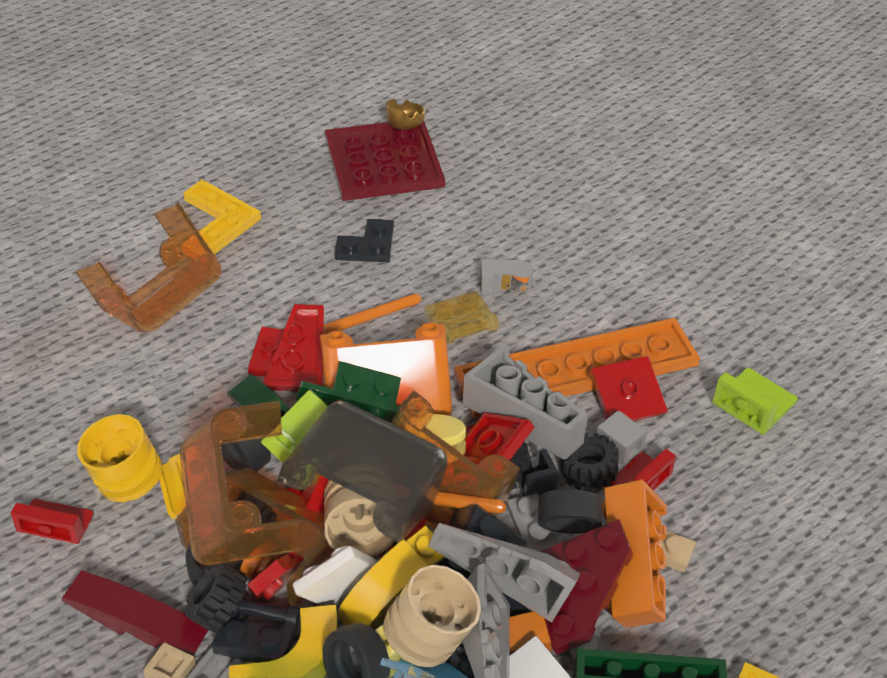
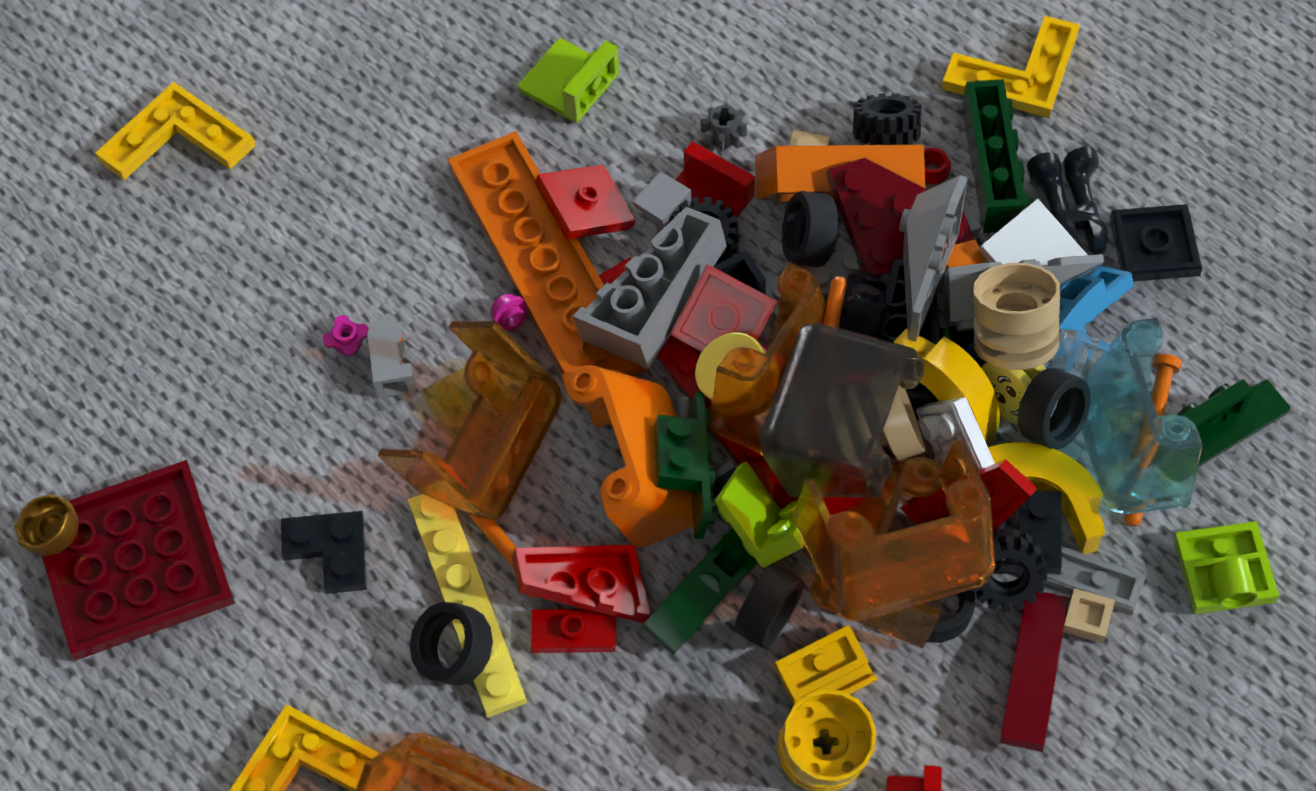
camera: 95 degrees left, 15 degrees up
(271, 280) = (426, 637): none -> black tyre
(334, 298) = (461, 584): none -> light yellow plate
(392, 303) = (499, 432): none -> clear orange windscreen
(533, 257) = (345, 345): none -> dark pink plate
(533, 338) = (509, 311): none -> dark pink plate
(653, 633) = (936, 157): none -> red plate
(693, 619) = (887, 120): none -> black tyre
(698, 489) = (723, 127): none -> dark grey gear
(722, 194) = (172, 113): none -> yellow plate

